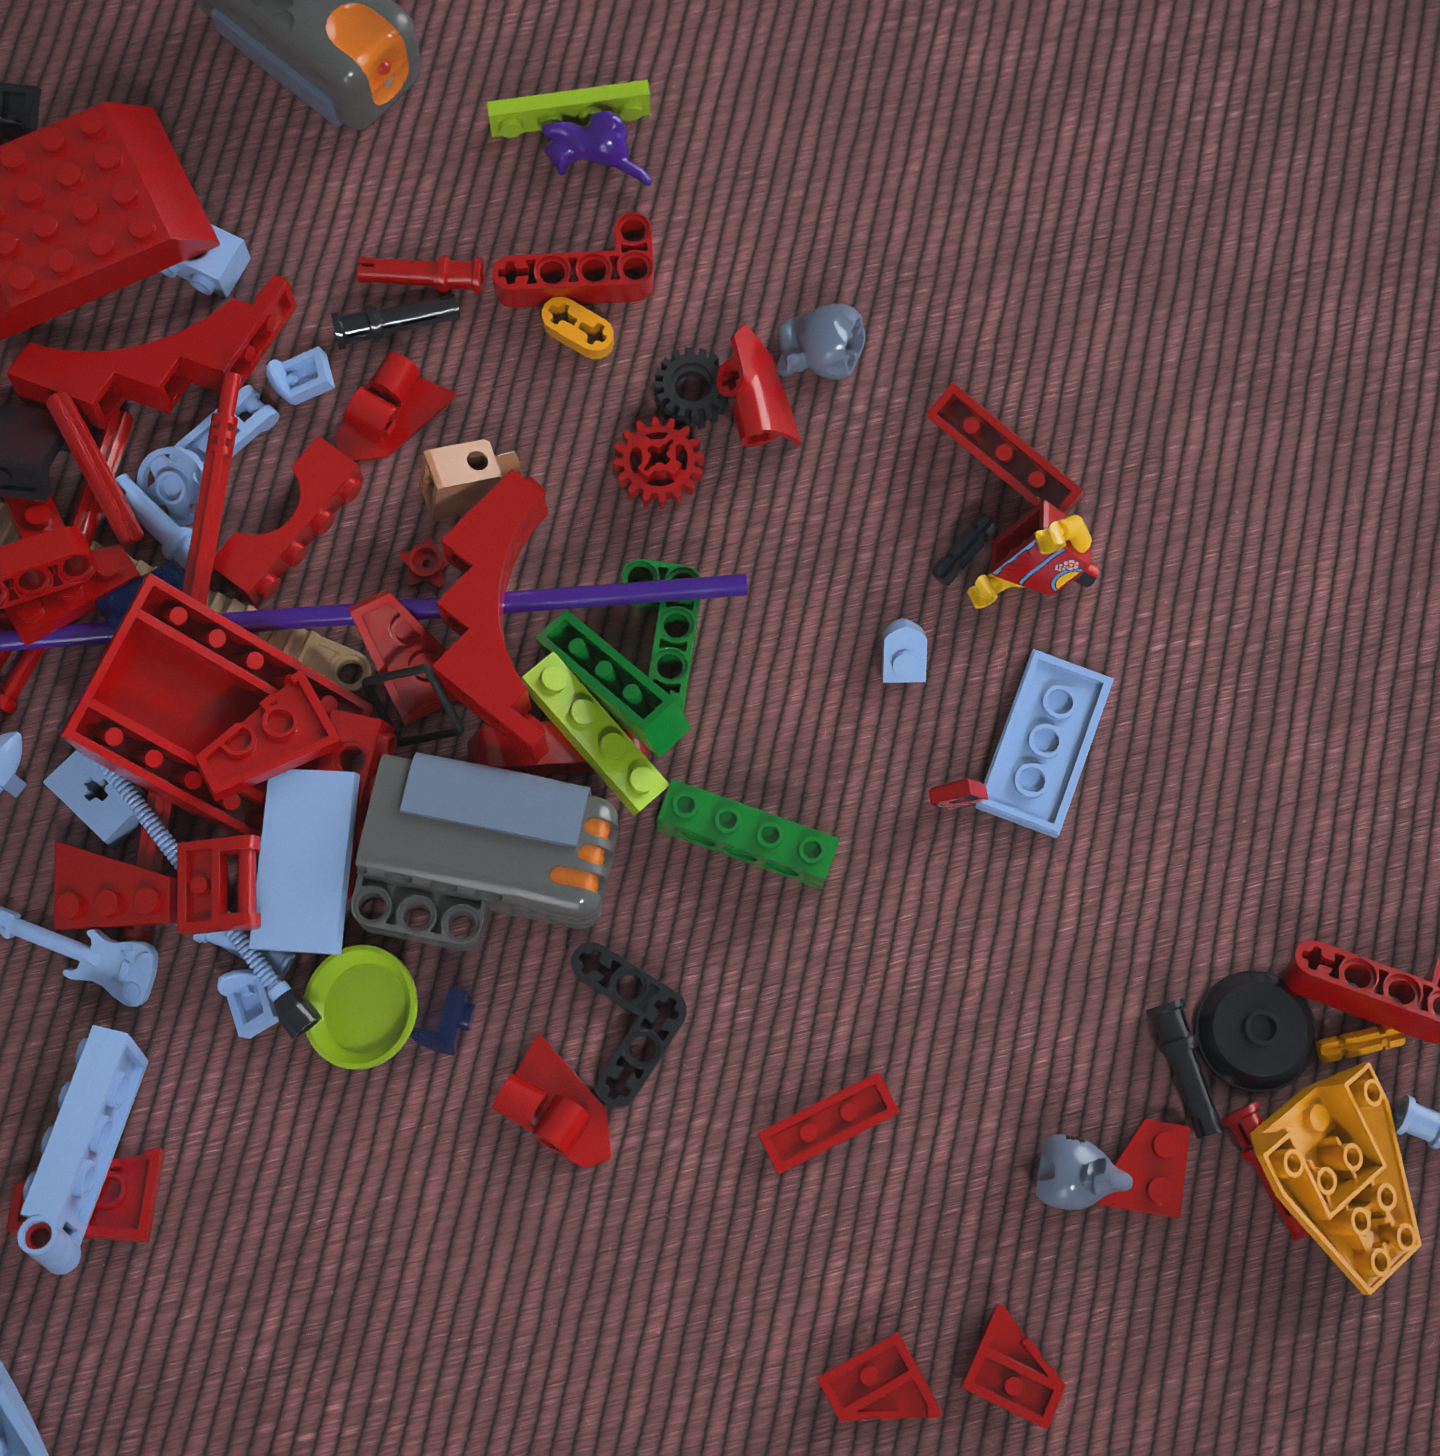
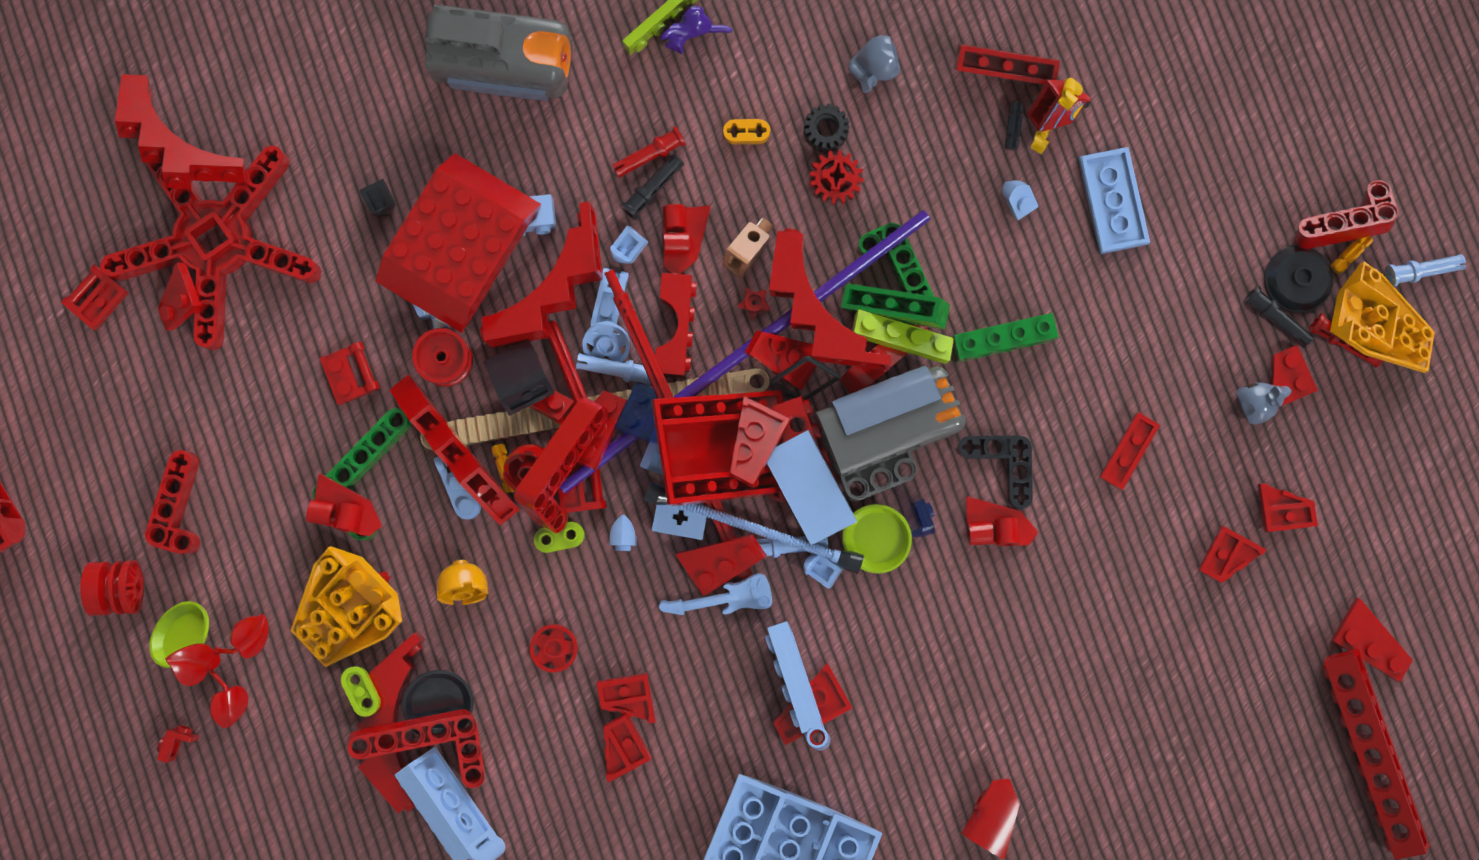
camera: 30 degrees left, 10 degrees up
(94, 468) = (565, 361): red axle -> none
(204, 885) = (770, 529): red plate -> none
(576, 266) = (724, 102): red beam -> none
(761, 403) = (860, 107): red panel -> none
(958, 794) = (1091, 253): red tile -> none

